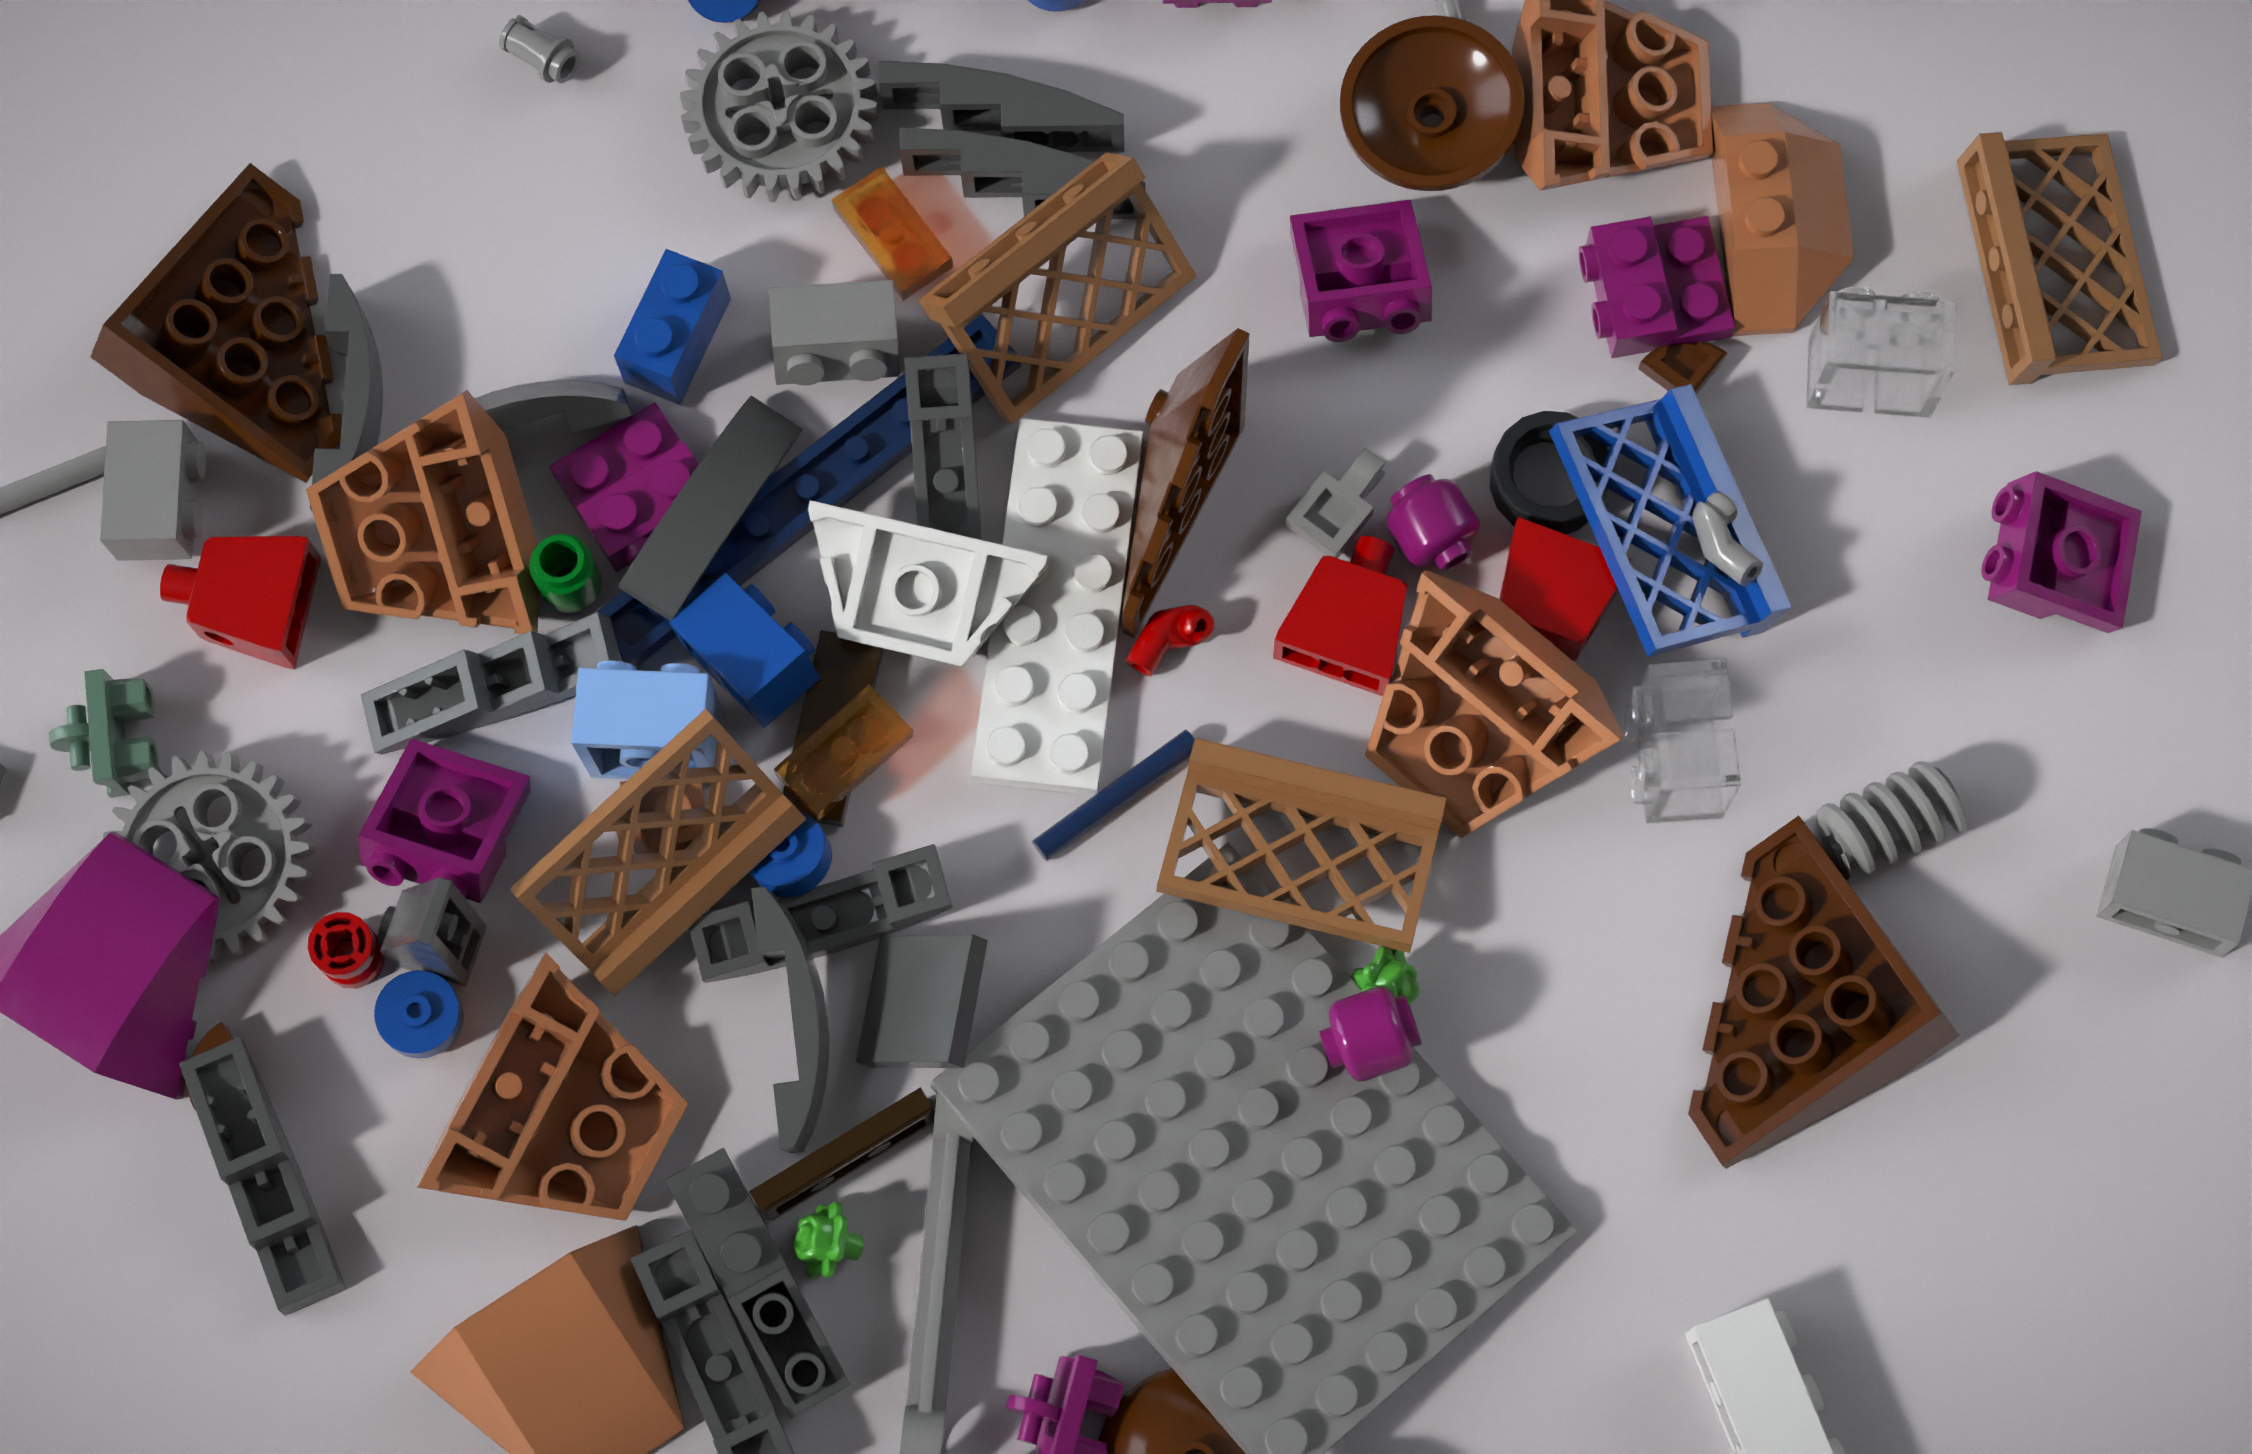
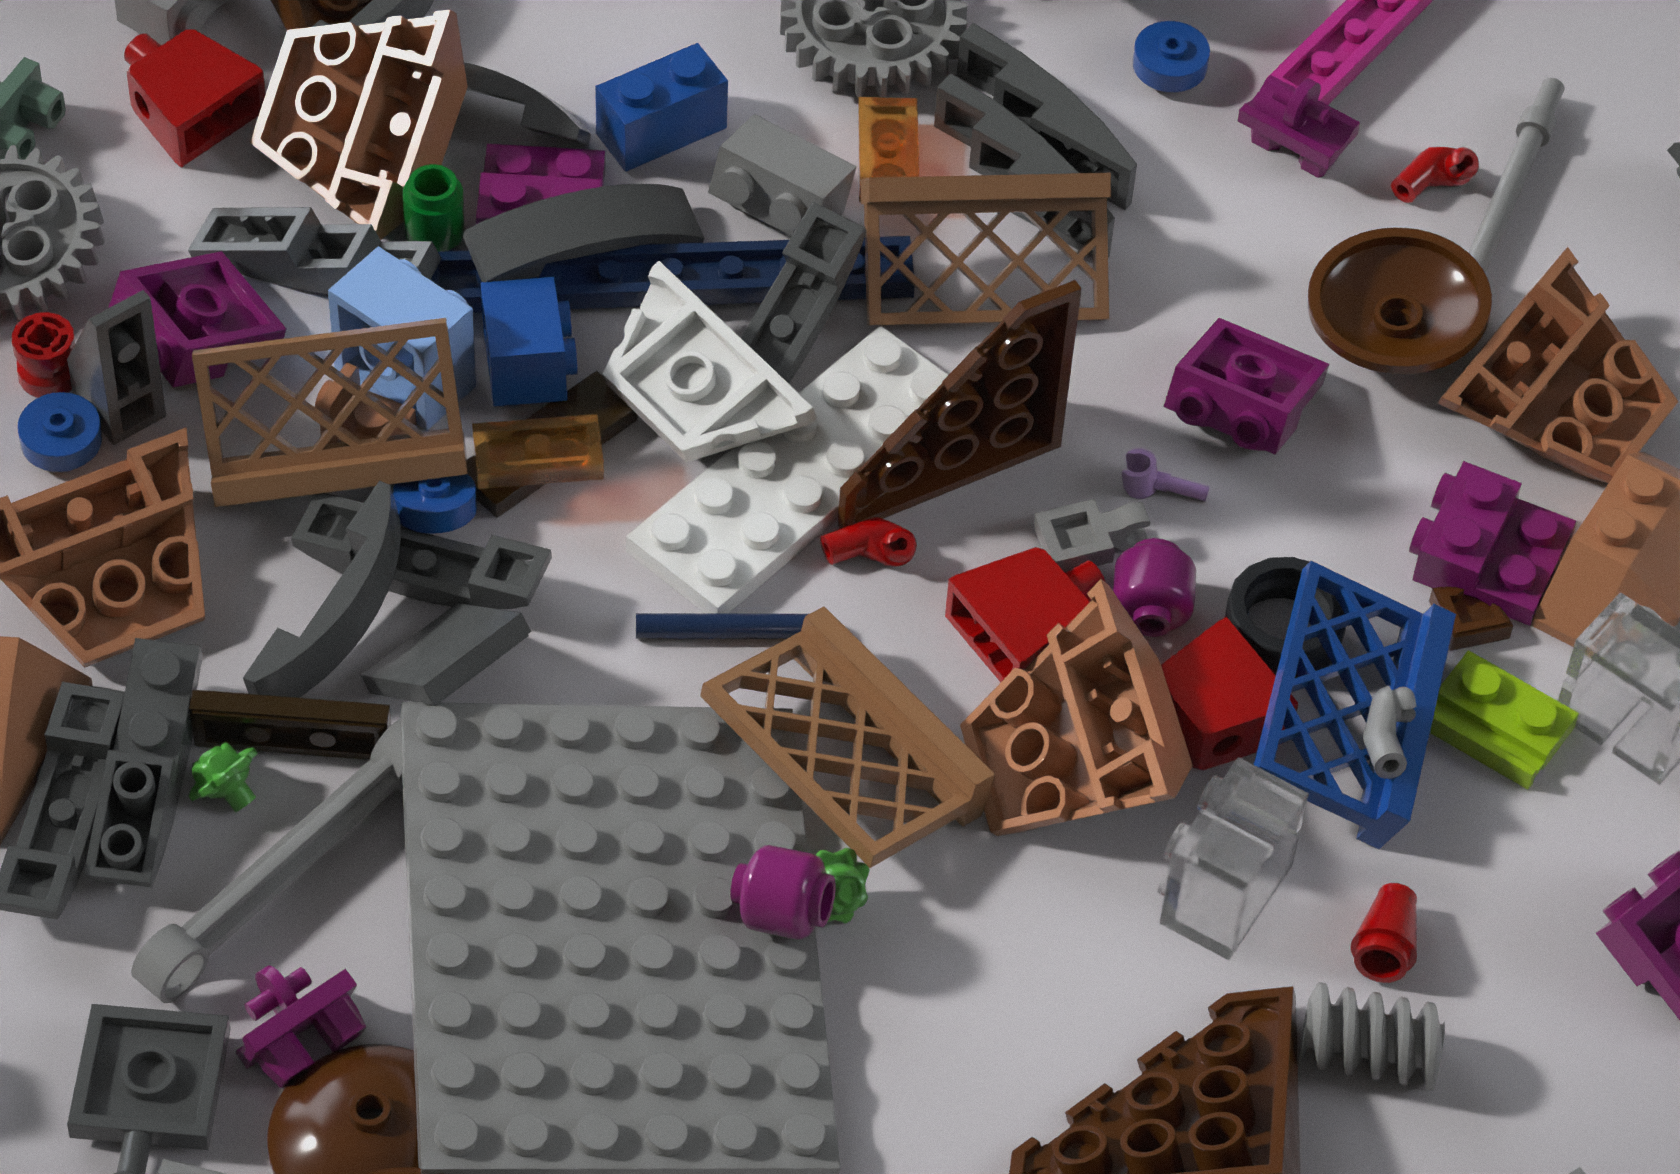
camera: 30 degrees right, 20 degrees down
(1351, 407) = (1144, 479): none -> lavender hand
(1778, 445) = (1500, 719): none -> lime plate
(1833, 713) = (1387, 935): none -> red cone

